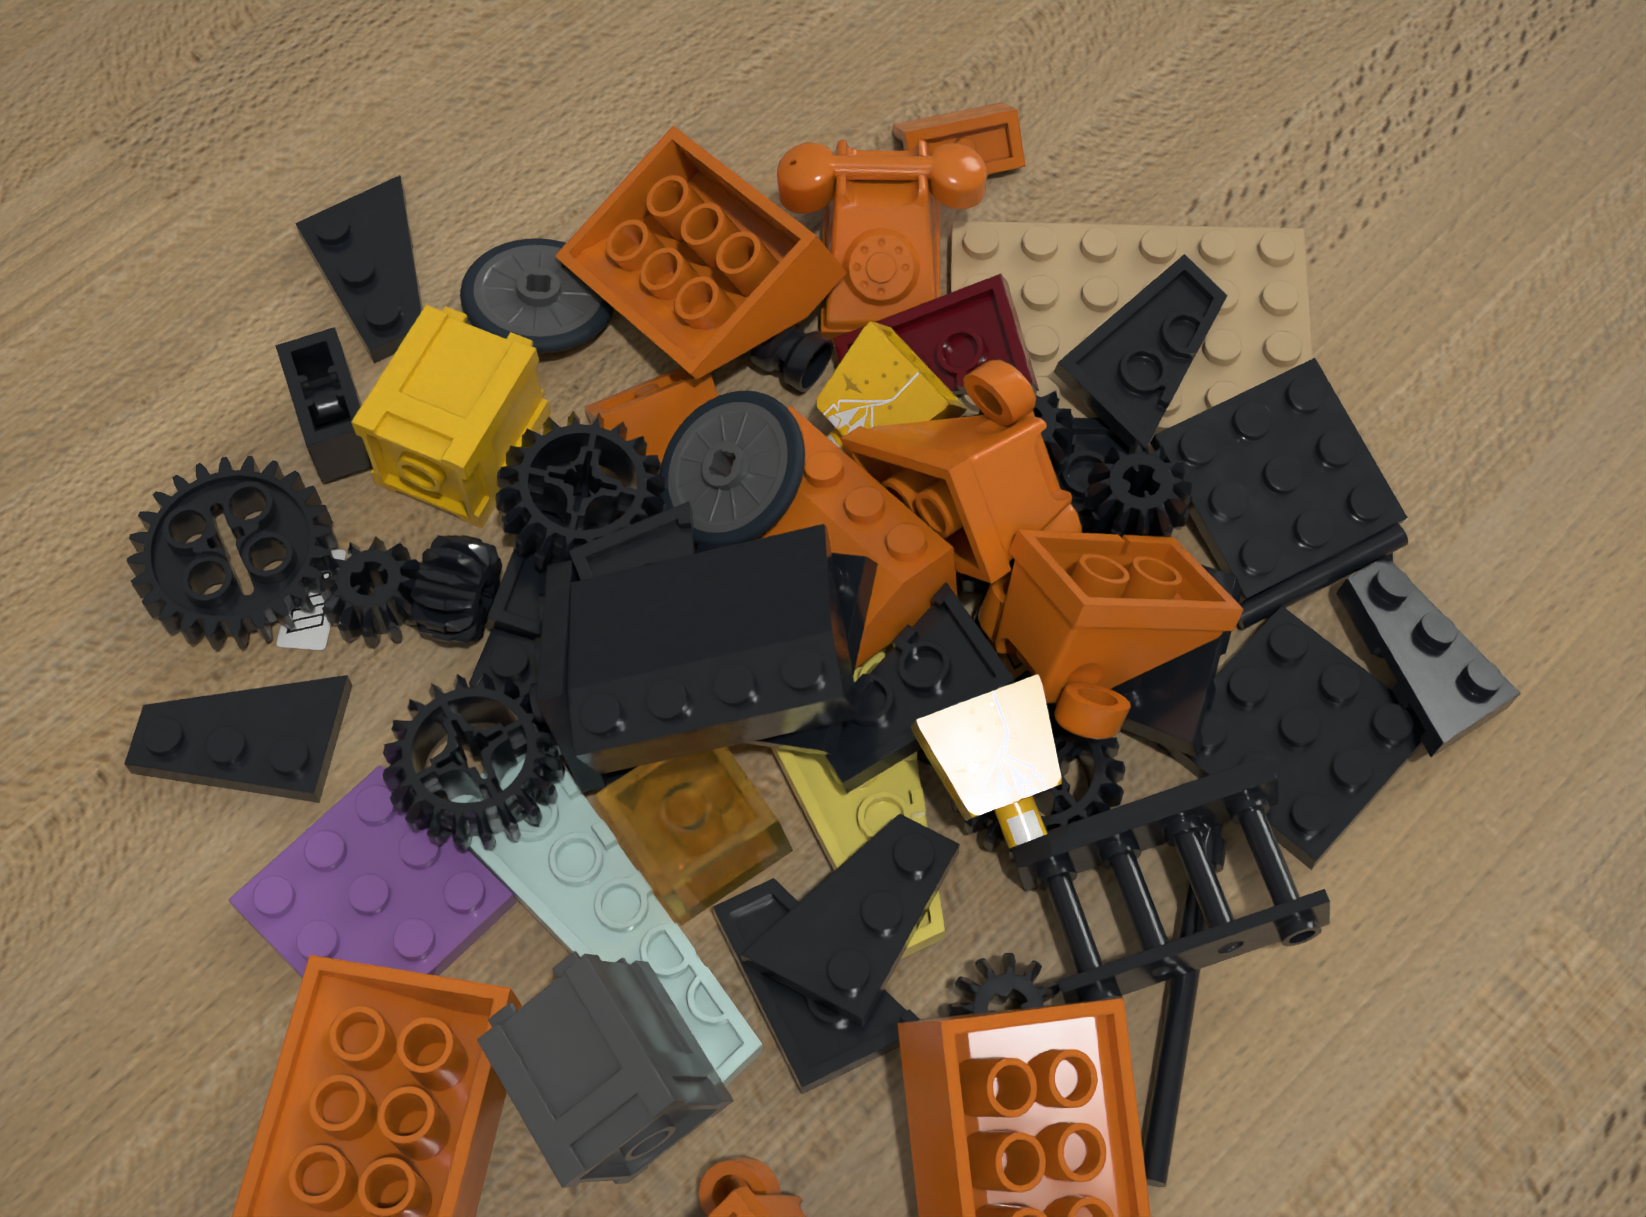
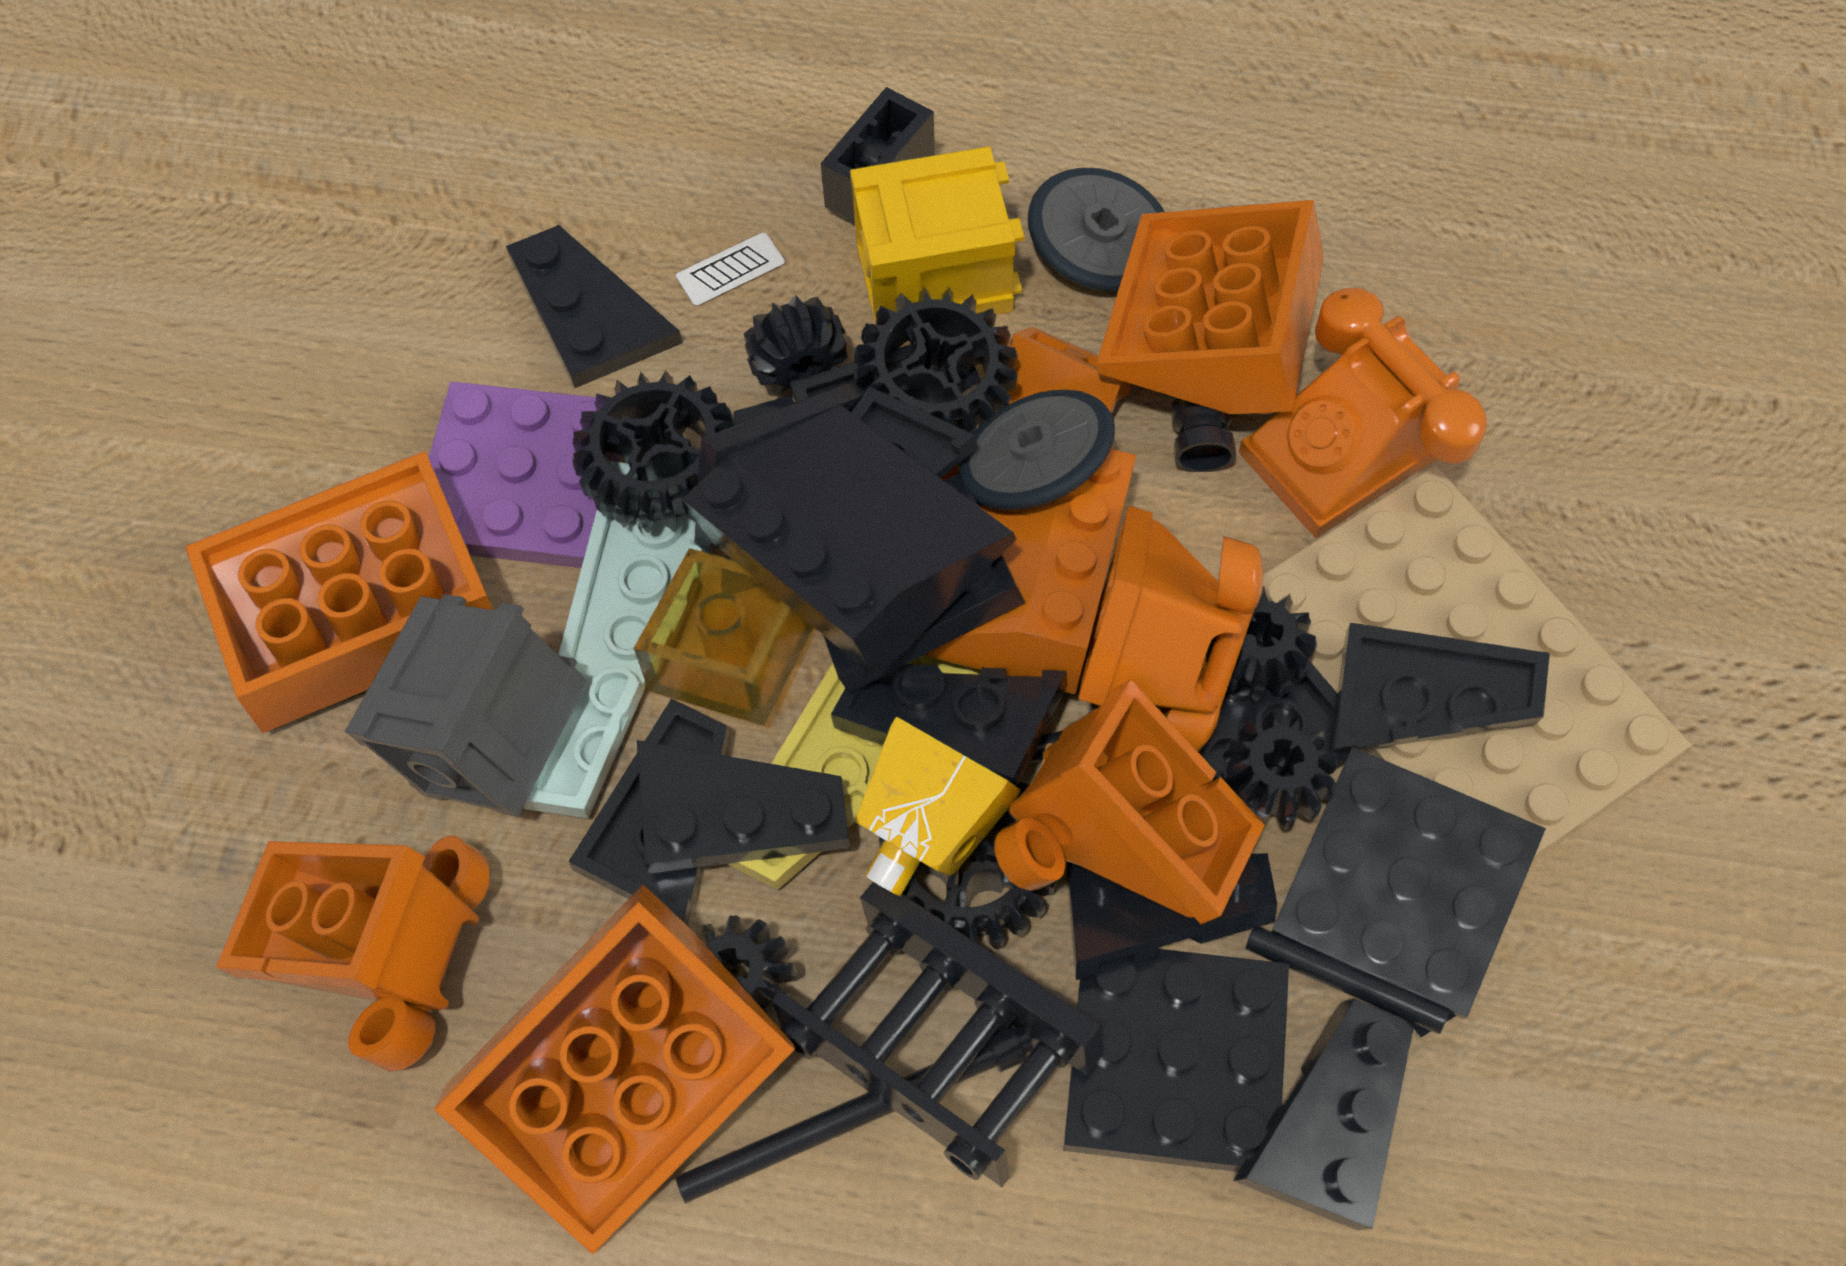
camera: 55 degrees right, 0 degrees up
(176, 573) = (718, 191): black gear -> none
(369, 264) = (1035, 101): black wing -> none
(370, 592) = (749, 290): black gear -> none
(883, 385) = (1213, 500): yellow torso -> none
(960, 332) = (1305, 535): dark red wing -> none
(987, 129) = (1525, 424): orange panel -> none

